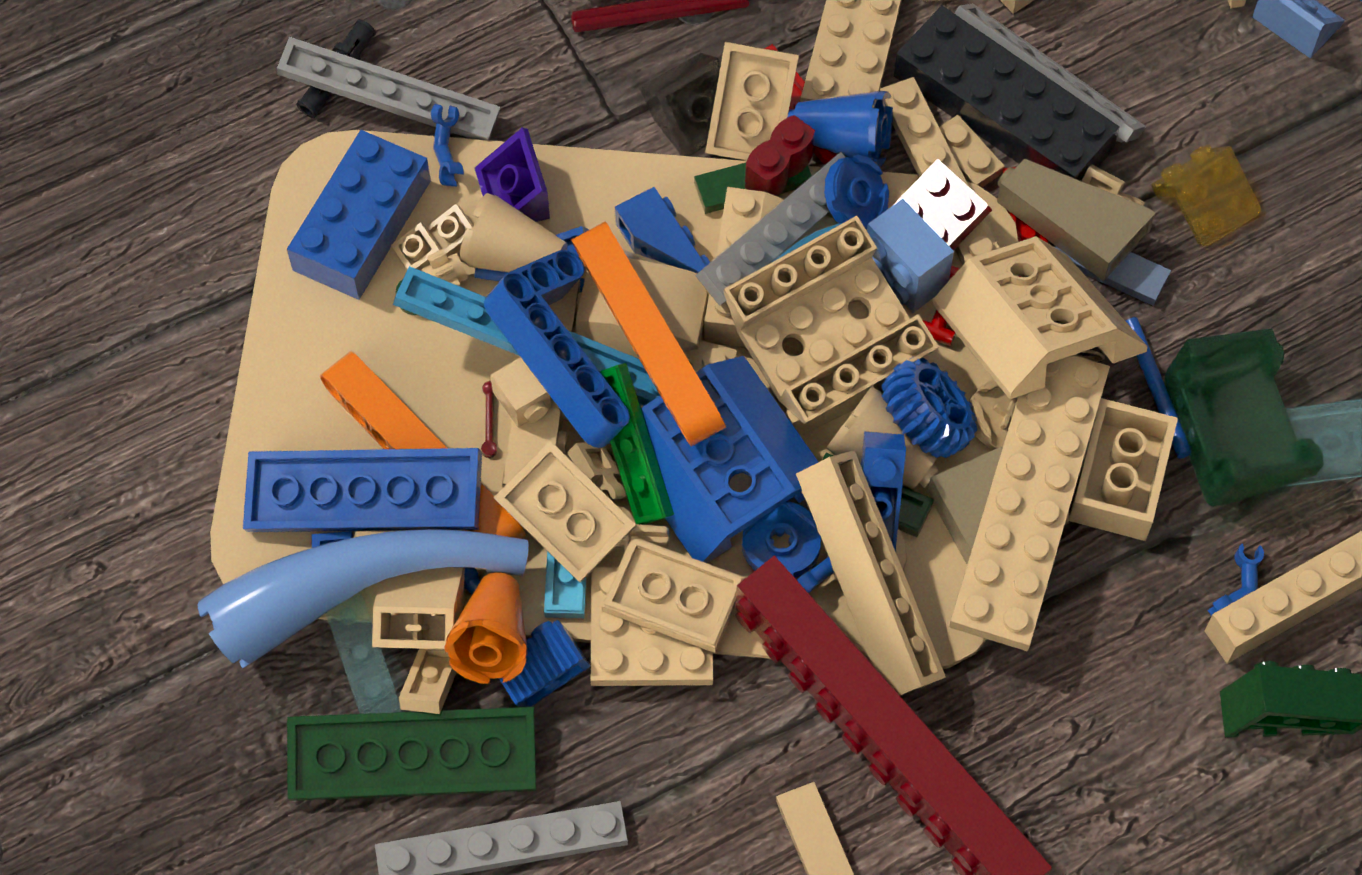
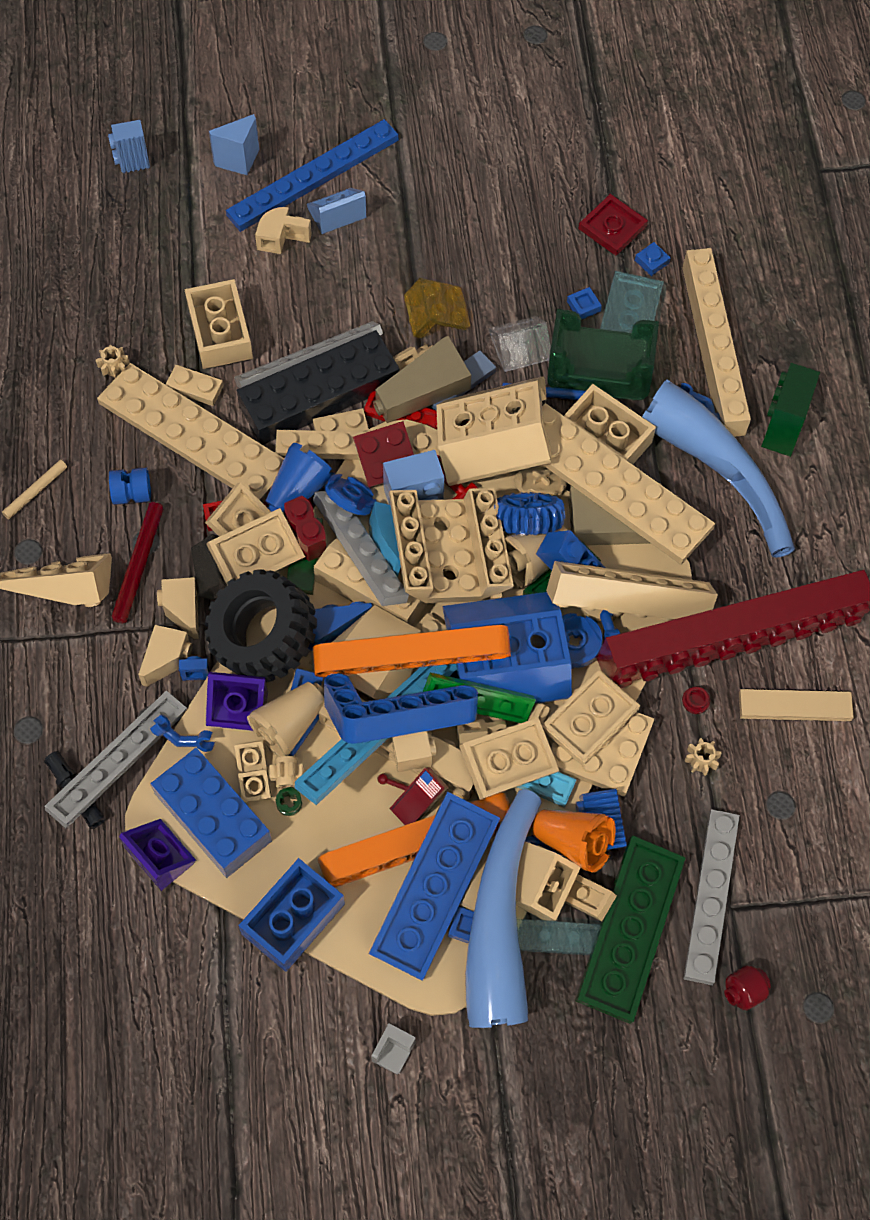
camera: 70 degrees left, 0 degrees up
(153, 533) = (393, 1049): none -> light grey panel
(264, 349) = (292, 914): none -> blue brick
(286, 178) = (157, 852): none -> dark purple slope
(475, 430) = (419, 797): none -> dark red tile
(543, 123) = (194, 668): none -> blue plate
(545, 85) = (163, 654): none -> tan slope
(613, 158) = (238, 606): none -> black tyre
(620, 76) = (180, 603): none -> tan slope
(685, 773) = (707, 751): none -> tan gear
(717, 113) = (256, 545): none -> tan plate
(773, 731) = (696, 700): none -> dark red plate
(1184, 582) = (700, 433): none -> medium blue brick
(1211, 308) = (521, 343): none -> clear slope
(1321, 372) = (584, 303): none -> blue plate

